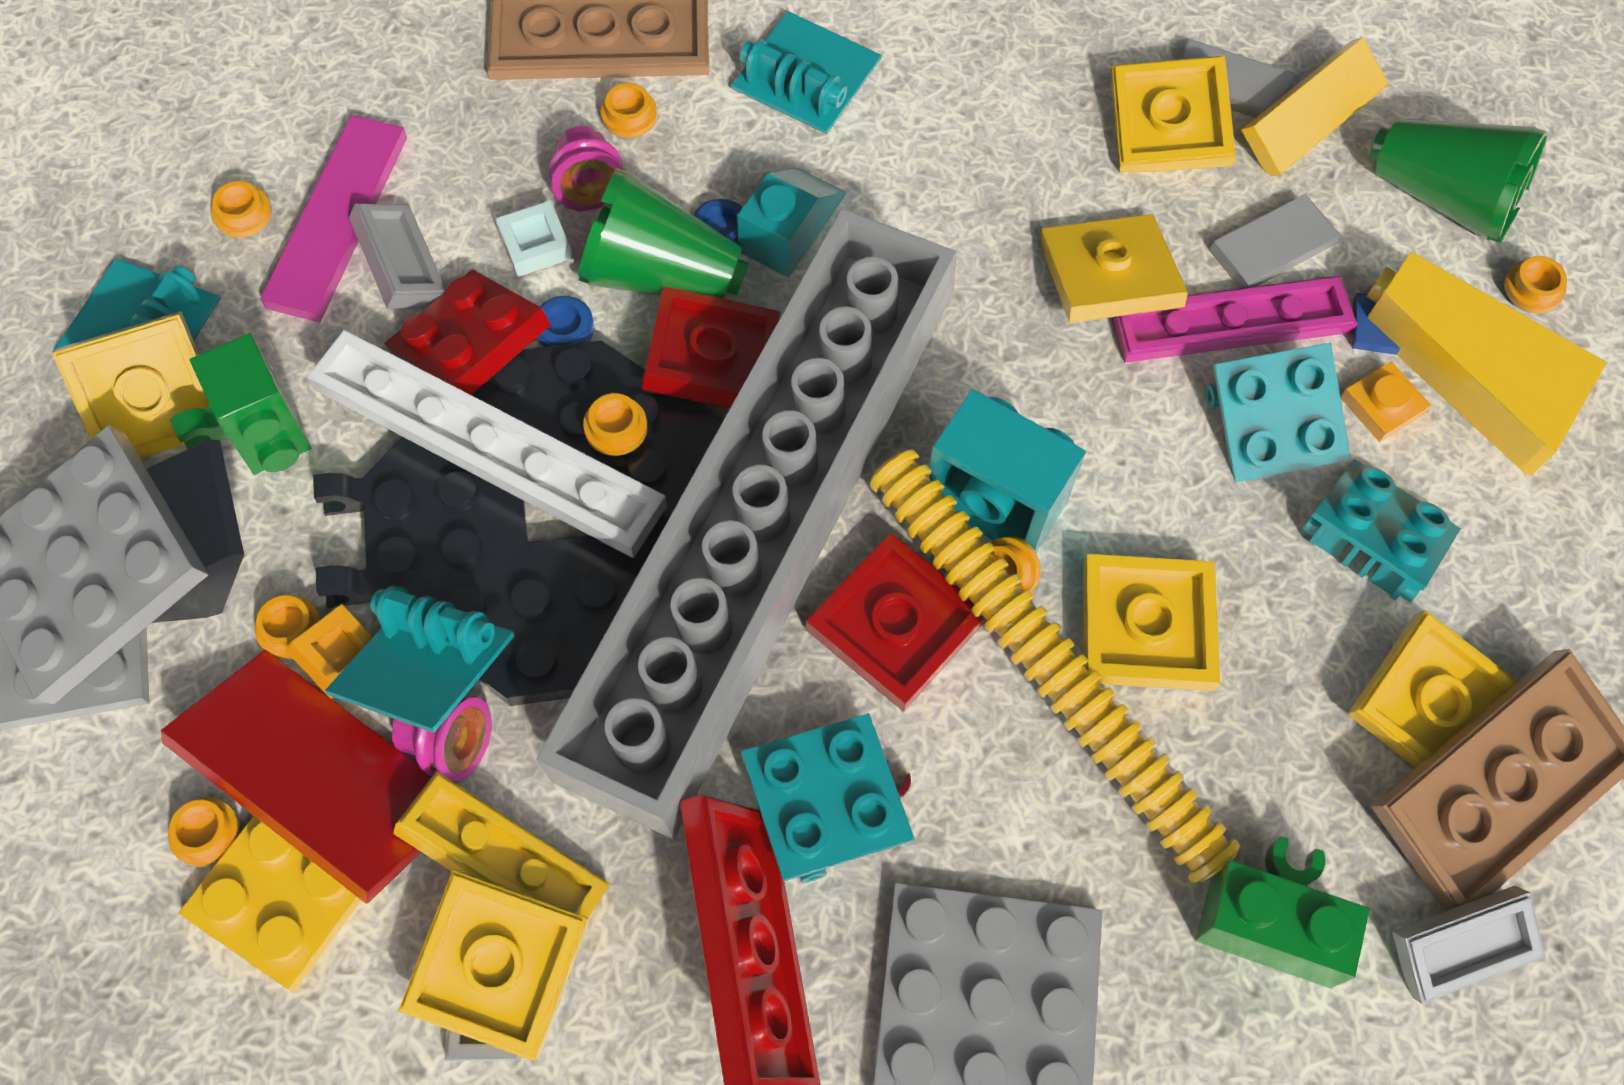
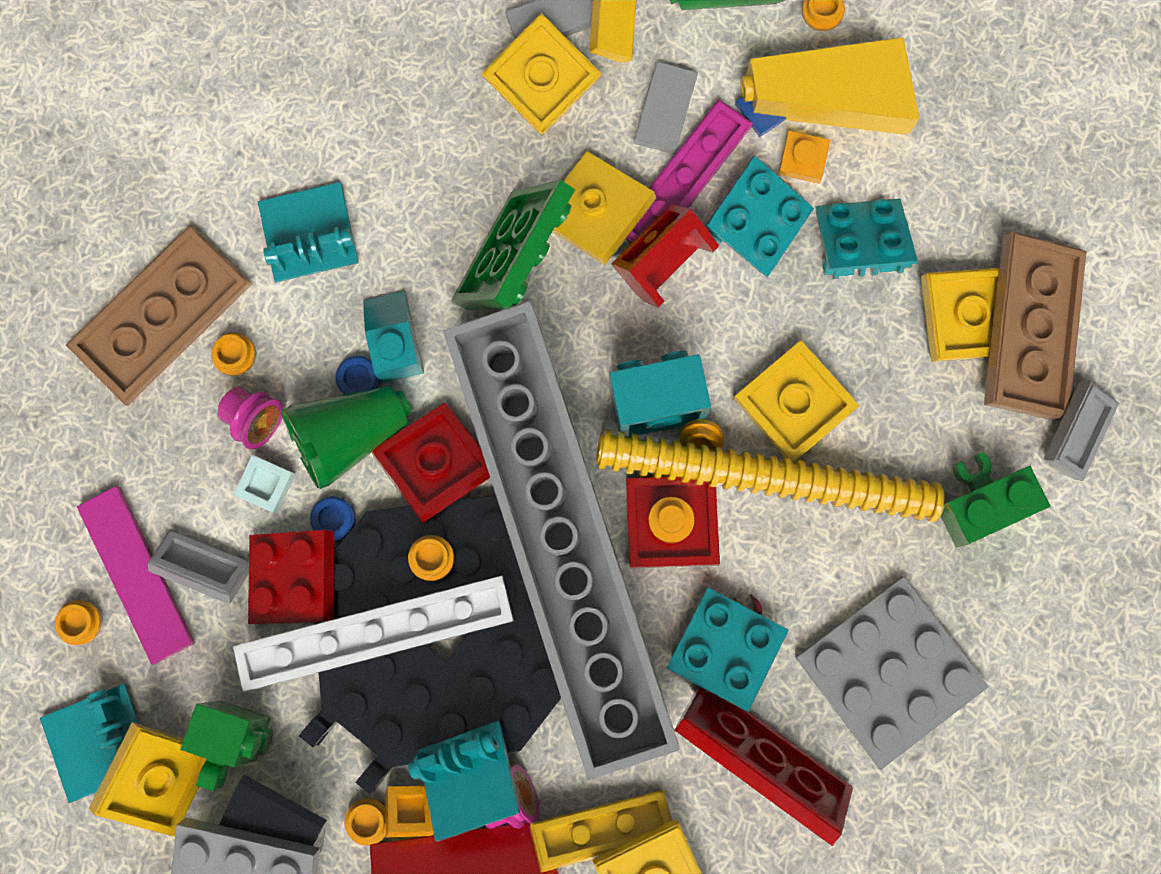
camera: 35 degrees left, 15 degrees up
(896, 606) = (671, 520): none -> light orange plate
(995, 211) = (514, 247): none -> green plate
(1143, 359) = (662, 251): none -> red panel

